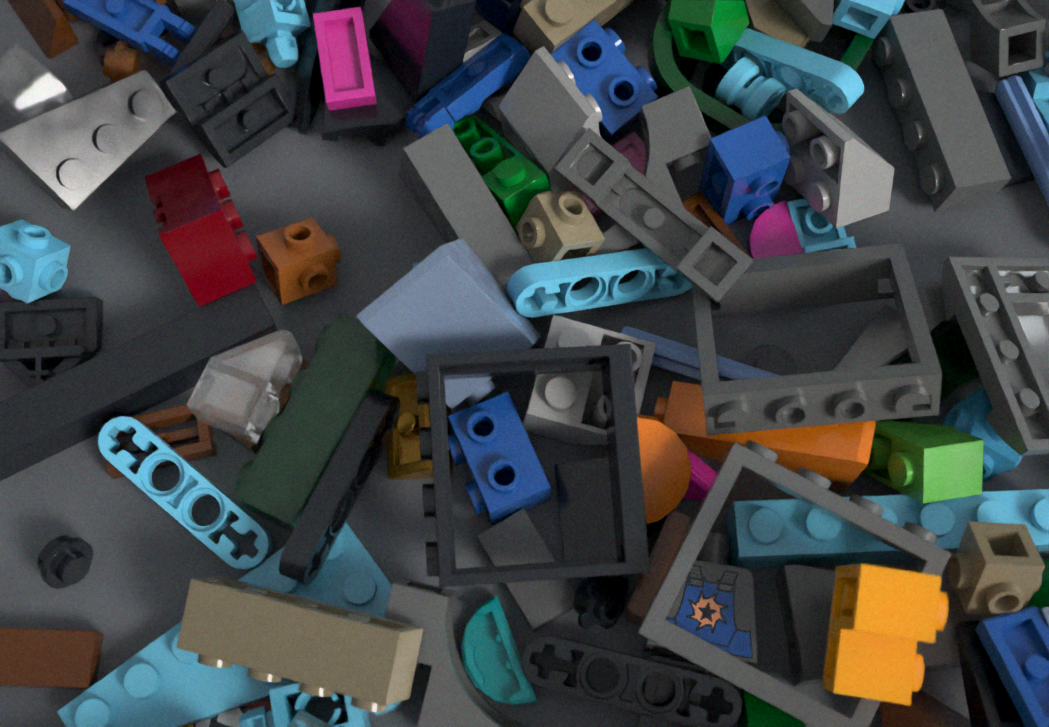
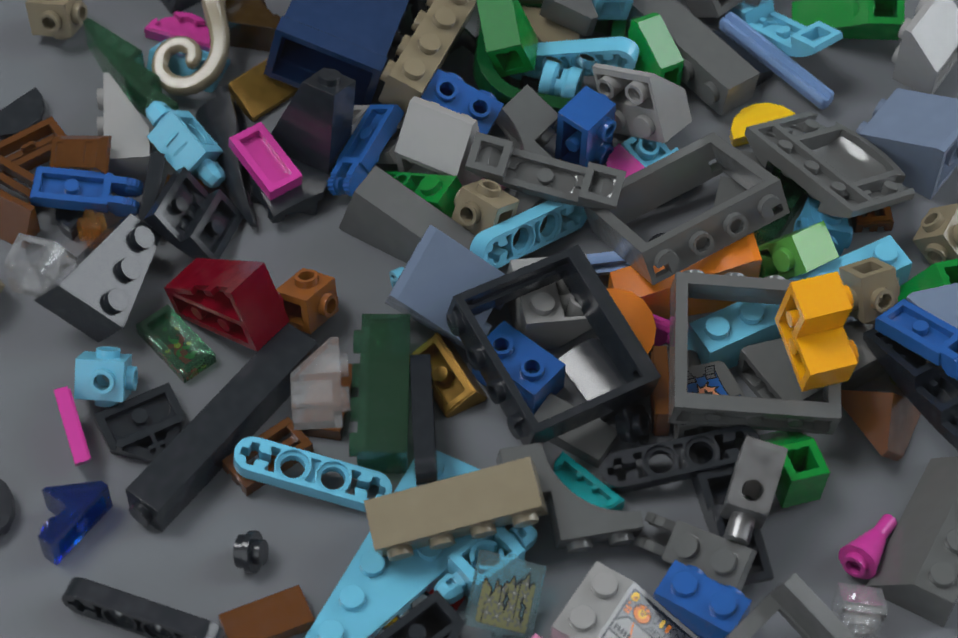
camera: 30 degrees left, 15 degrees down
(137, 249) = (176, 343): none -> clear green tile
(889, 106) = (656, 47): none -> green slope
(981, 235) = (754, 115): none -> yellow tile

